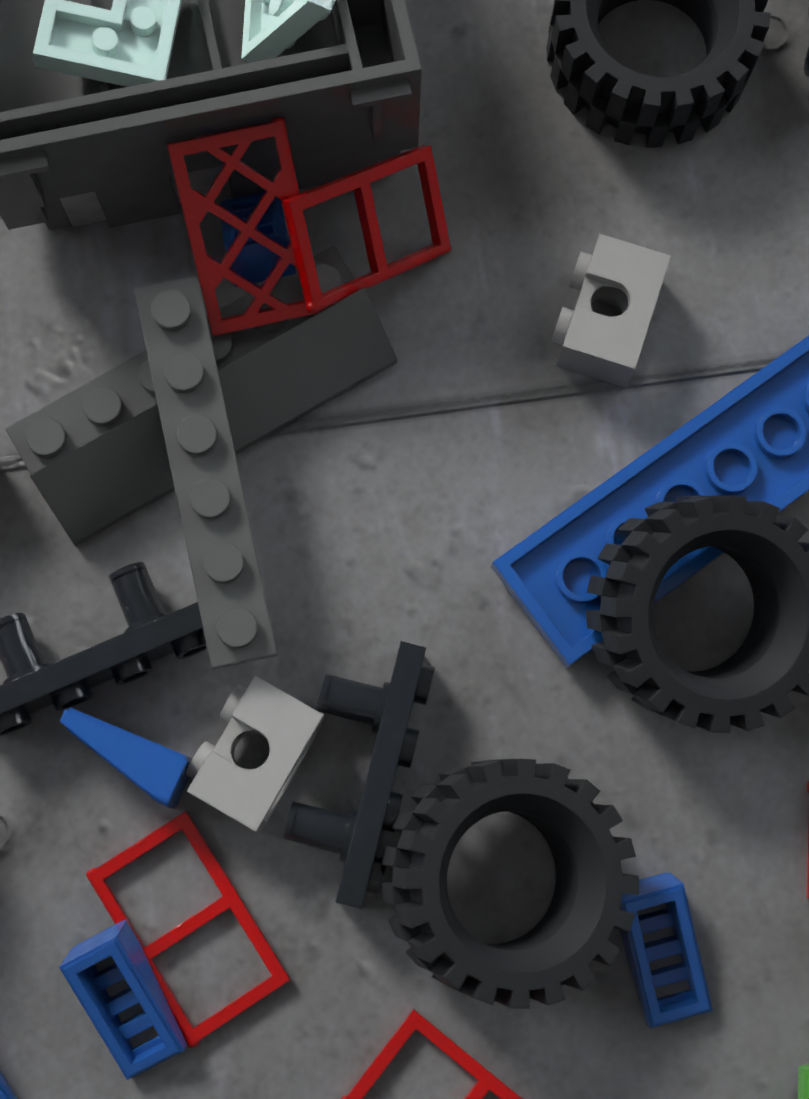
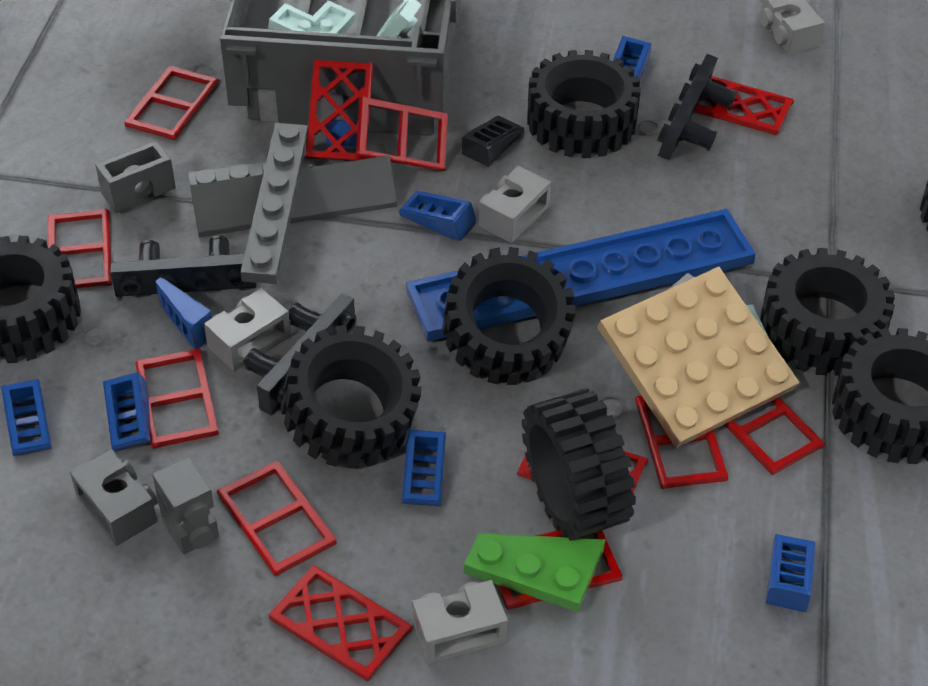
camera: 20 degrees right, 30 degrees down
(497, 191) = (490, 139): none -> black slope
(500, 391) = (451, 215): none -> blue slope

